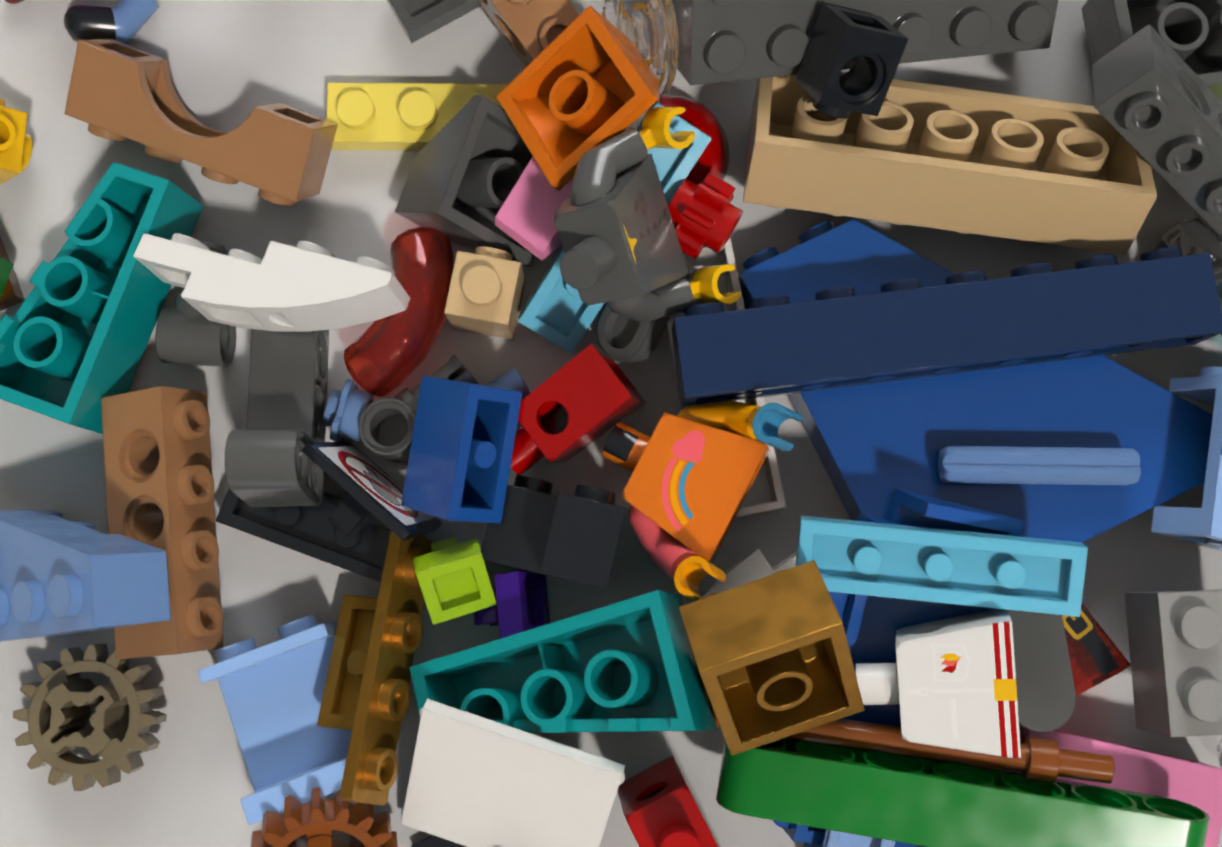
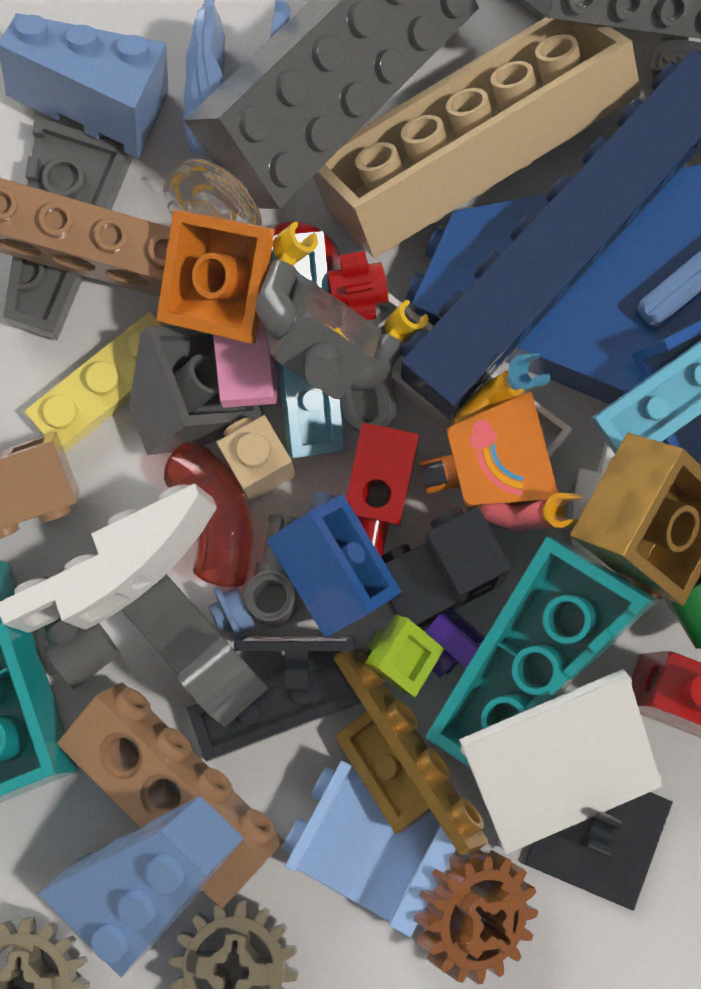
camera: 35 degrees left, 5 degrees down
(838, 38) = (371, 111): black brick -> none

